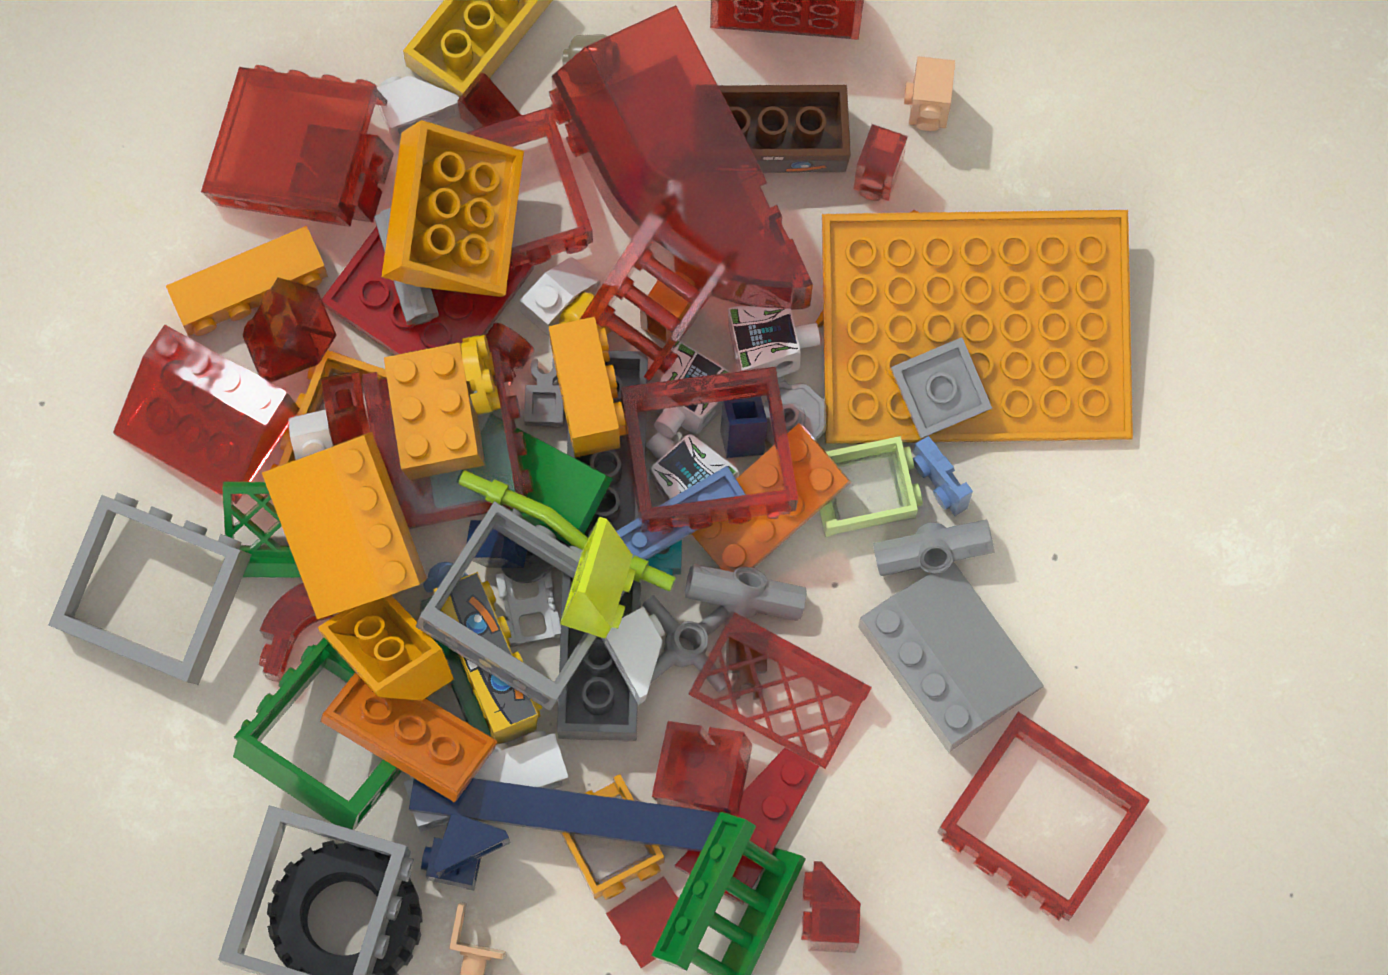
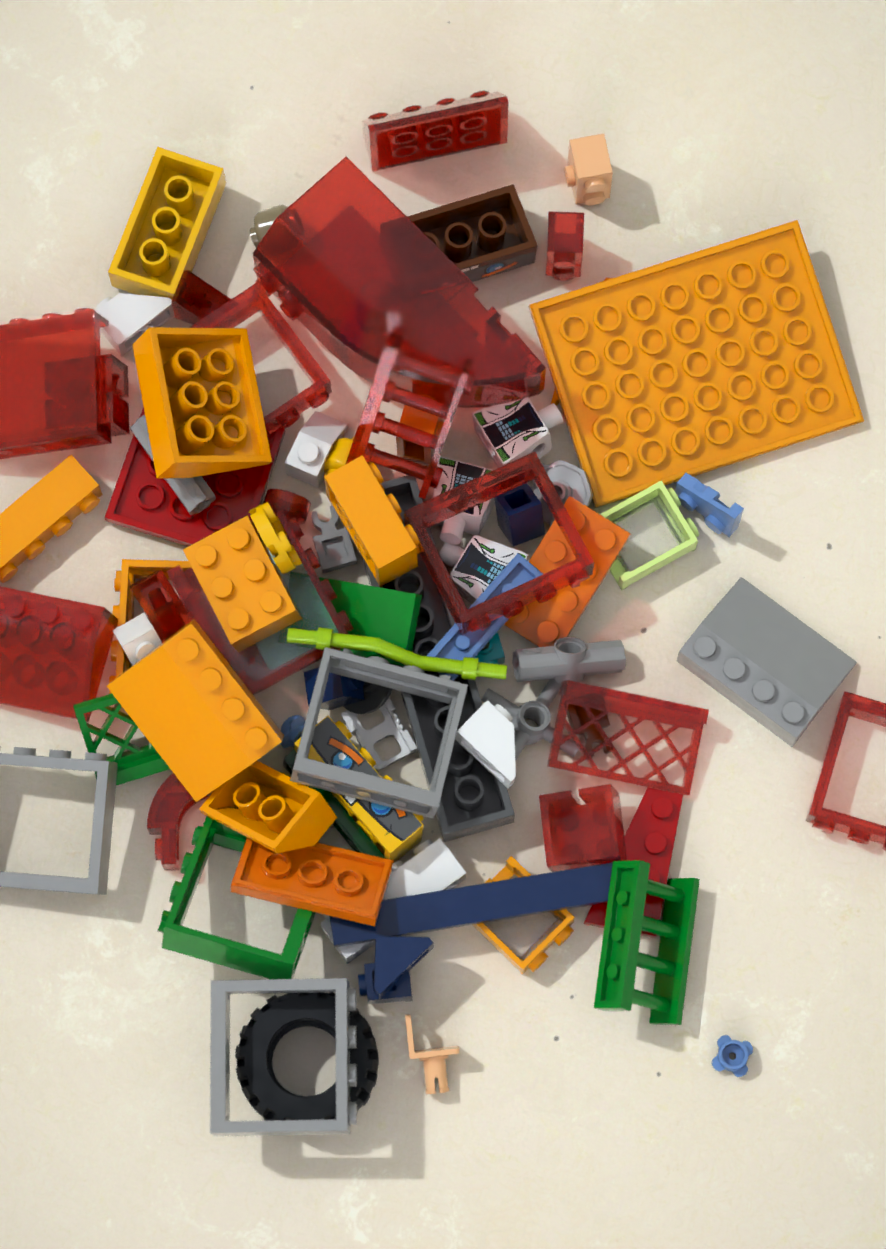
camera: 15 degrees left, 0 degrees up
(288, 330) = (85, 553): clear red slope -> none
(599, 583) = (443, 690): neon yellow slope -> none
(643, 919) = (574, 979): clear red piece -> none
(833, 913) = (739, 920): clear red slope -> none
(933, 547) = (722, 570): light grey piece -> none
(941, 388) = (683, 426): light grey plate -> none

